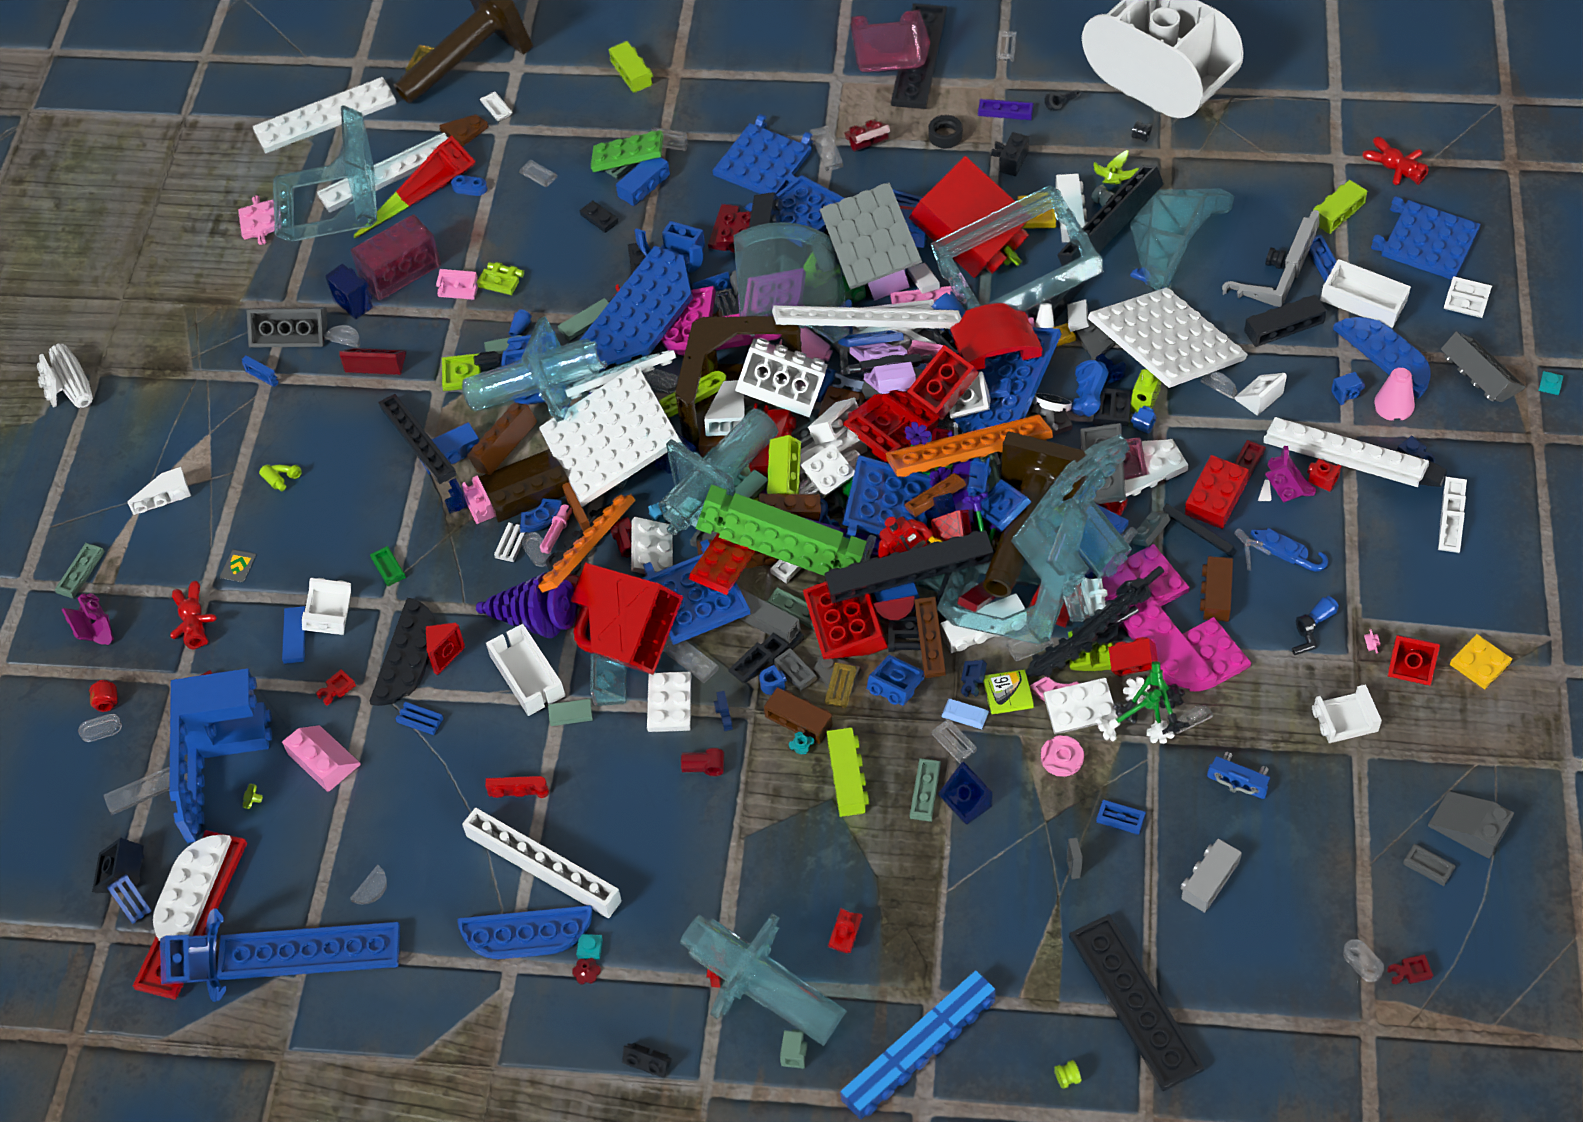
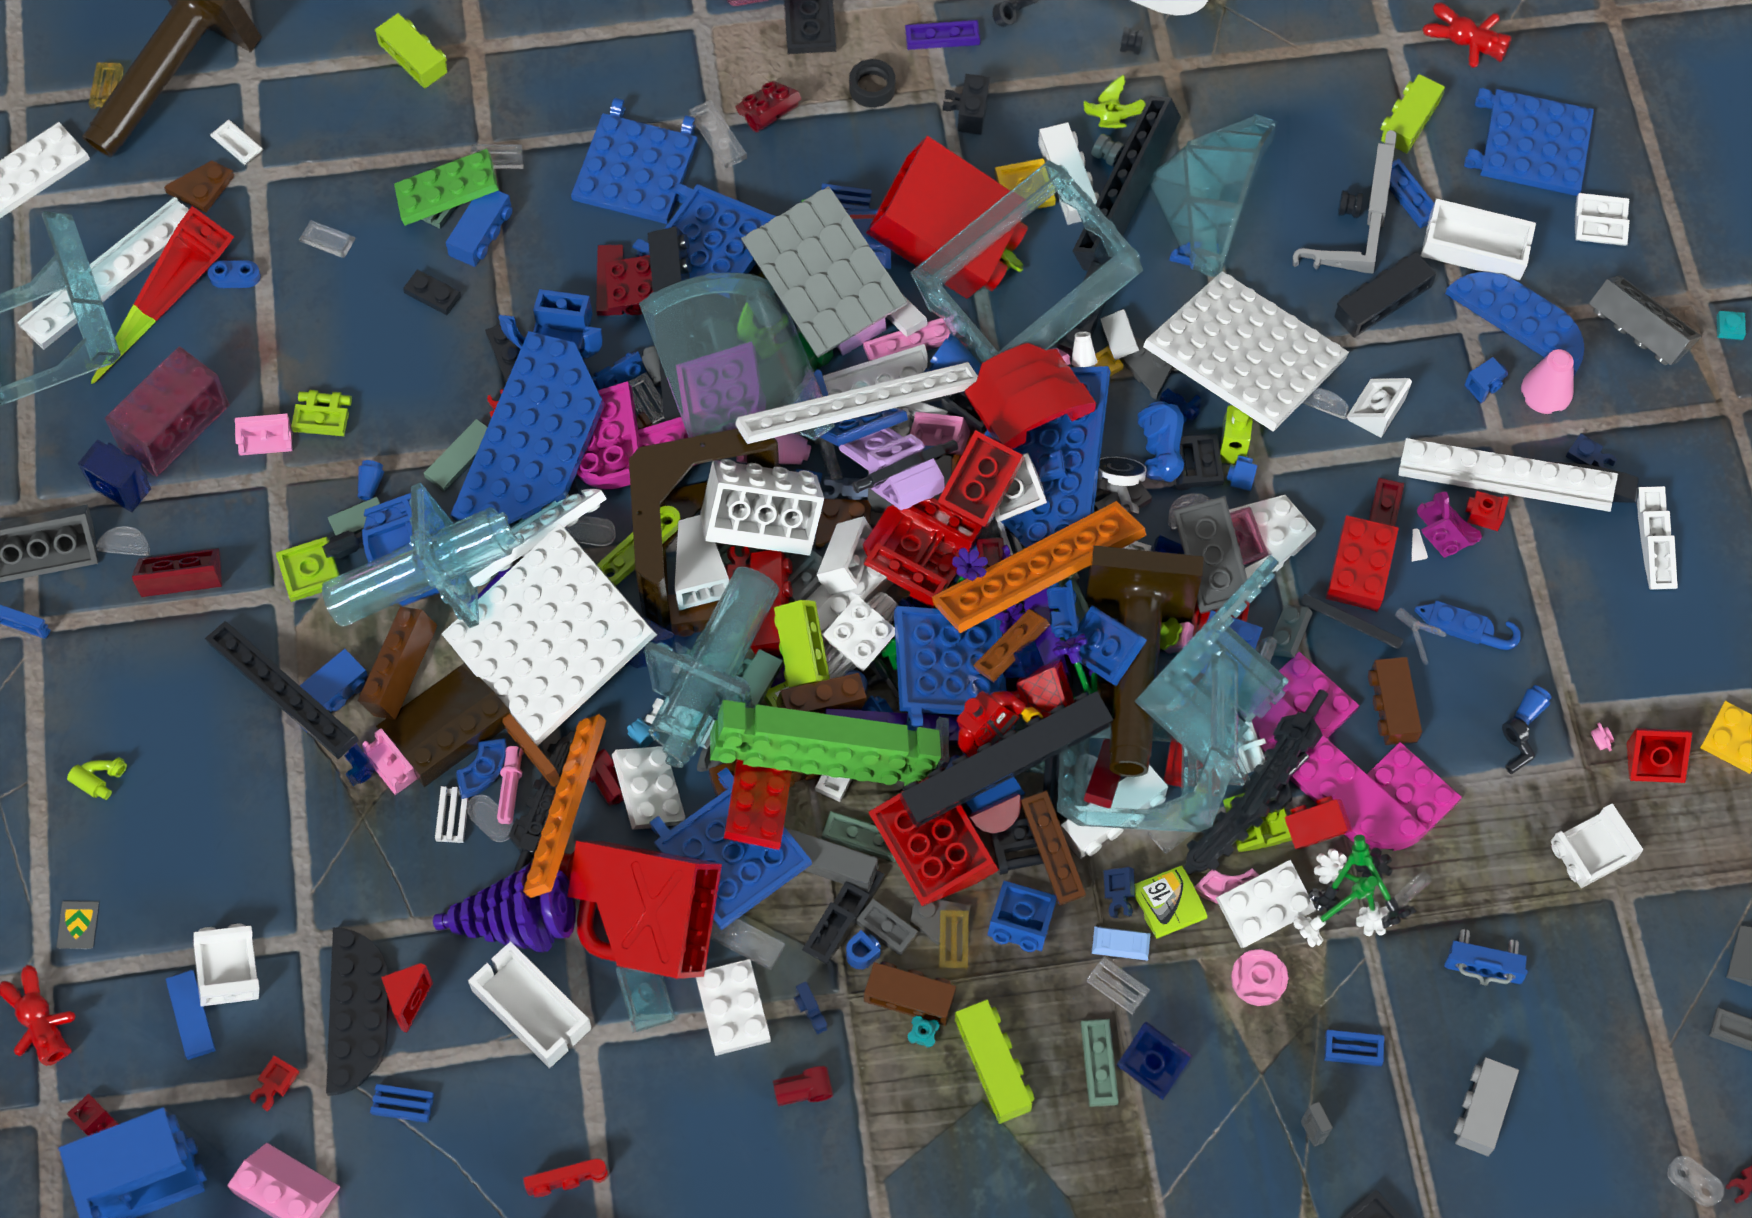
camera: 20 degrees left, 10 degrees up
(387, 566) = (290, 884): green tile -> none
(570, 712) = (604, 1051): sand green tile -> none

